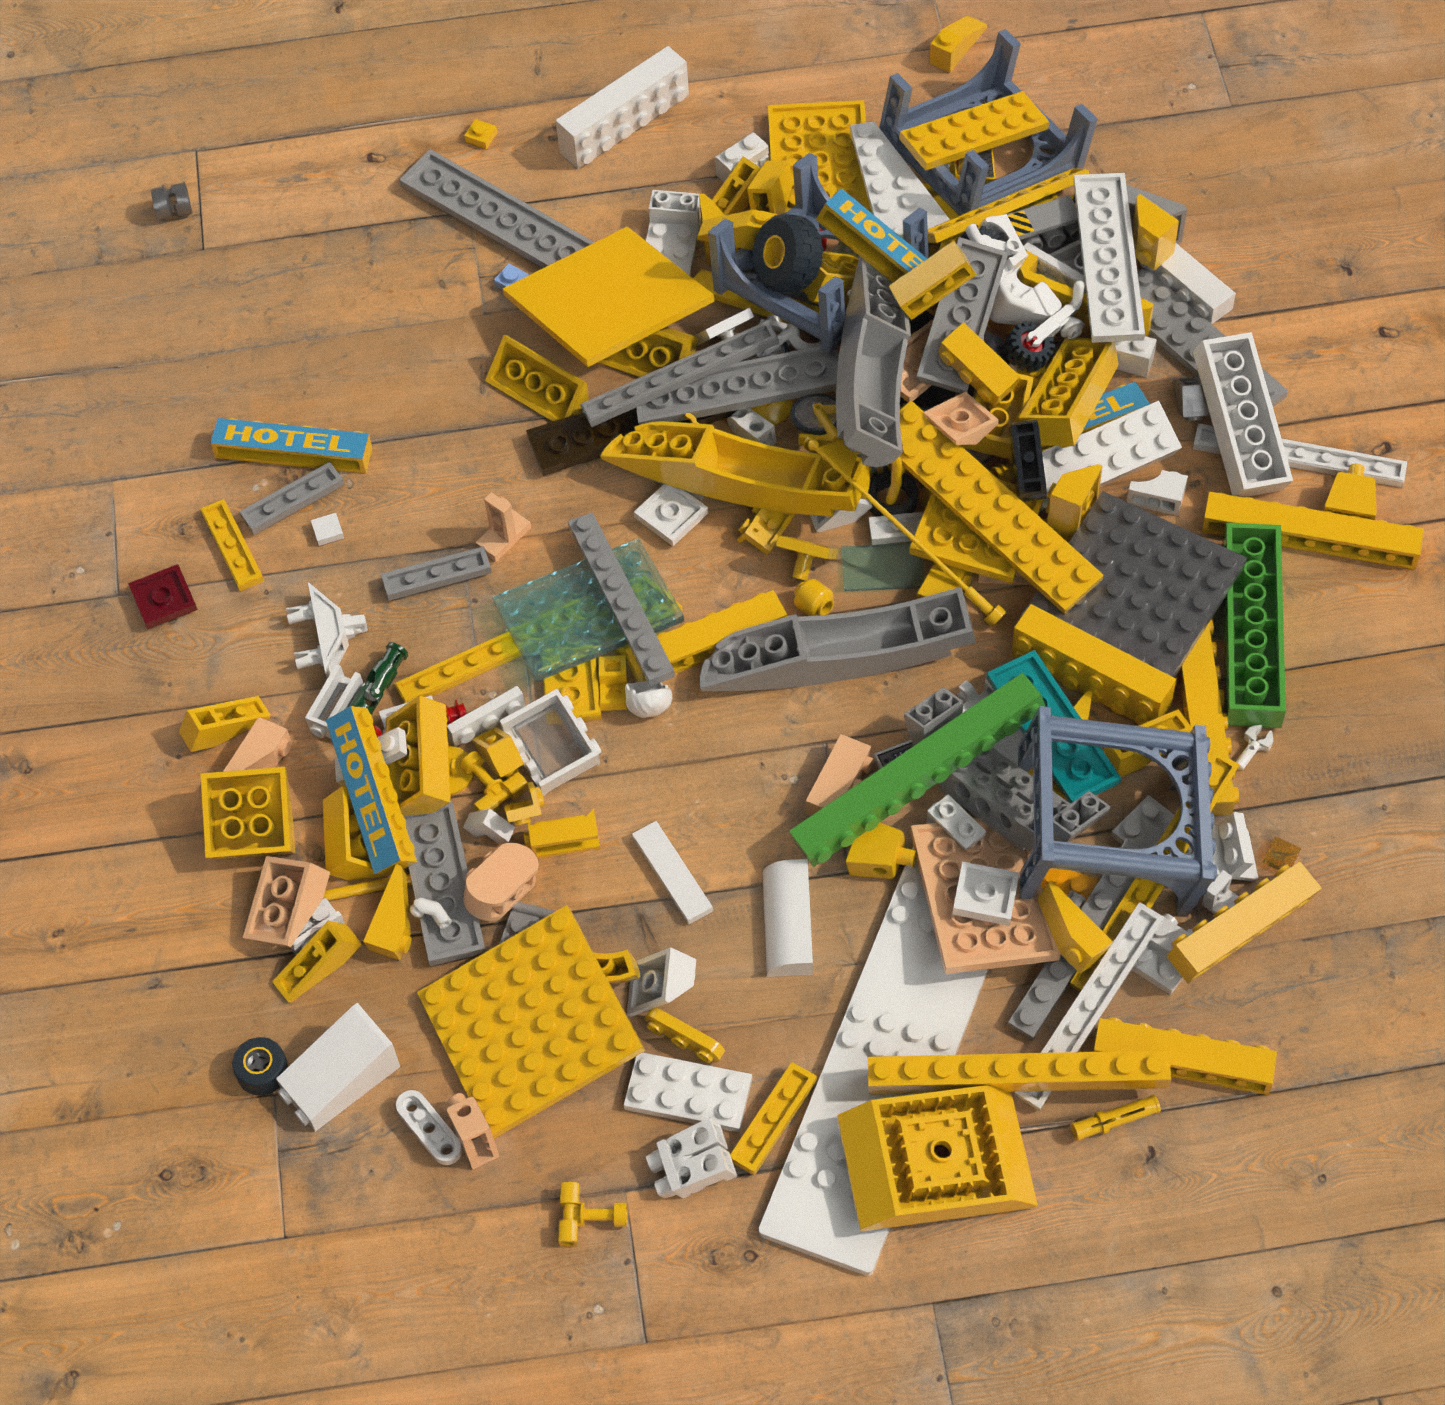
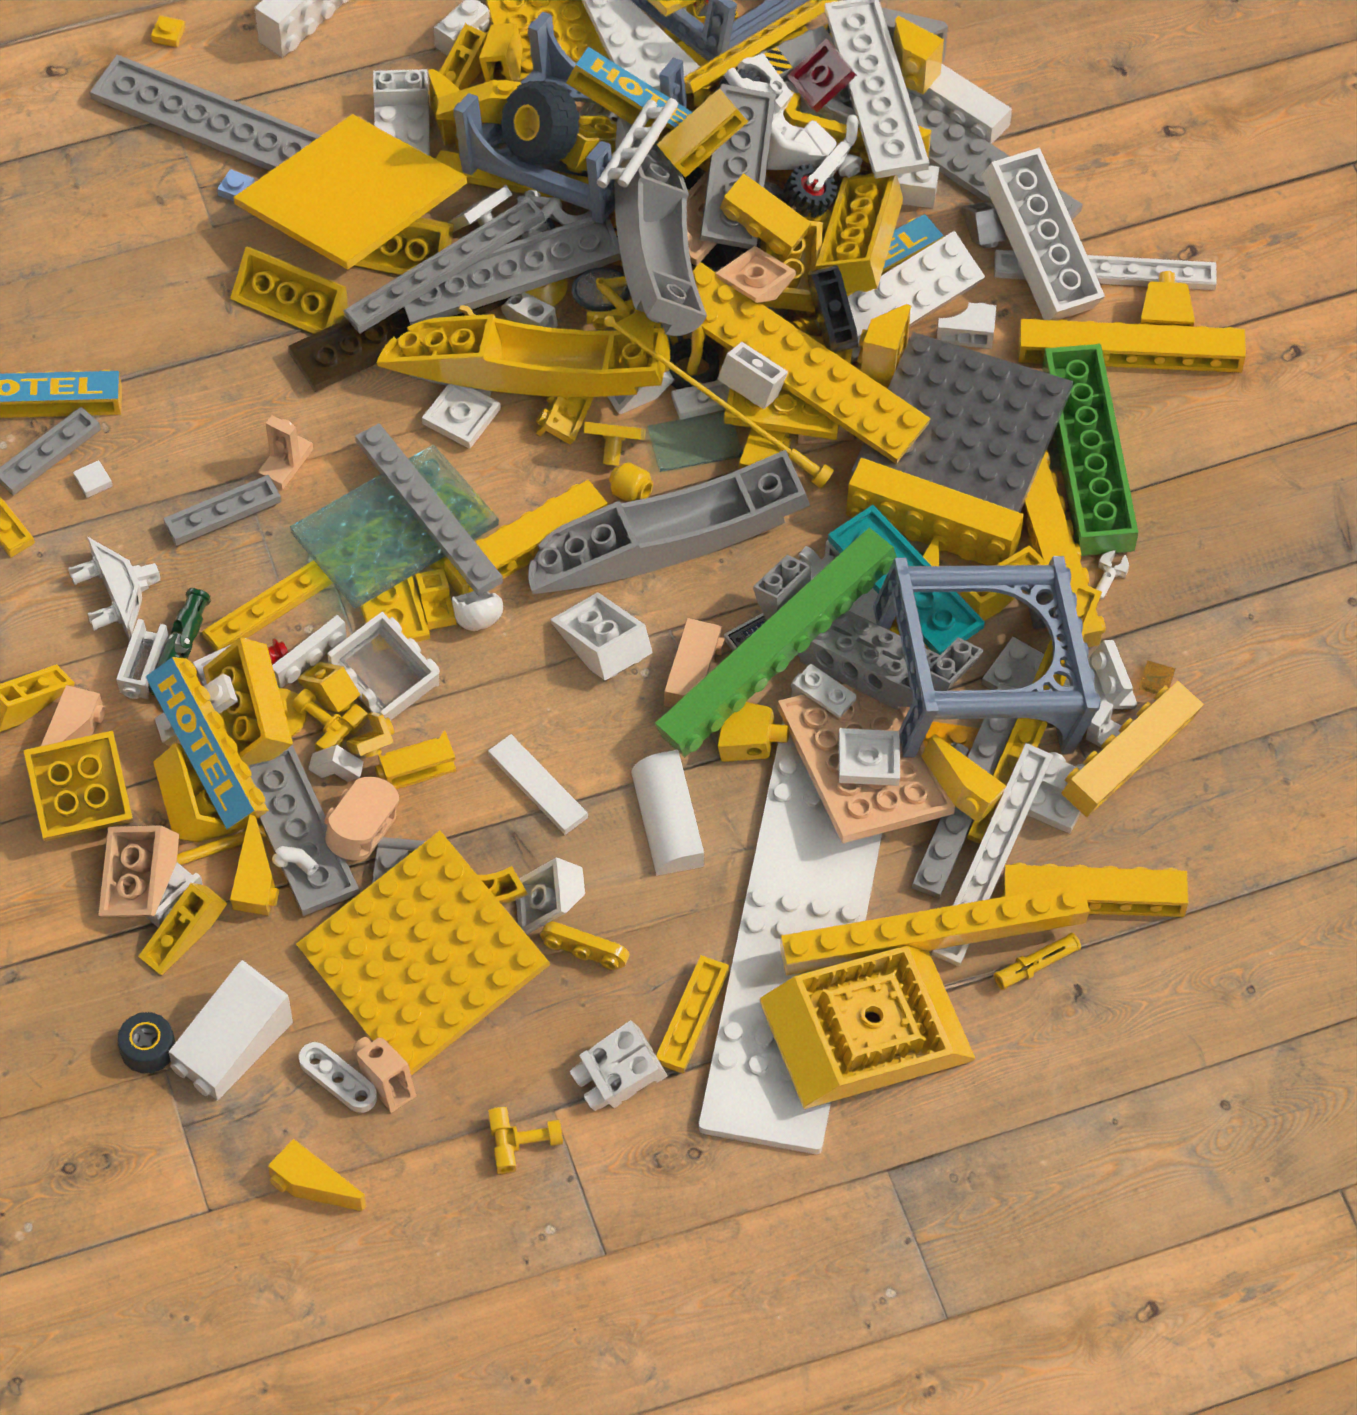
camera: 15 degrees left, 0 degrees up
(381, 1222) = (311, 1179): none -> yellow slope
(687, 1091) = (598, 1001): white plate -> none
(760, 739) = (603, 635): none -> white slope
(866, 293) = (637, 154): none -> white bar
(941, 512) = (752, 375): none -> white brick
(1059, 241) = (821, 75): none -> plate

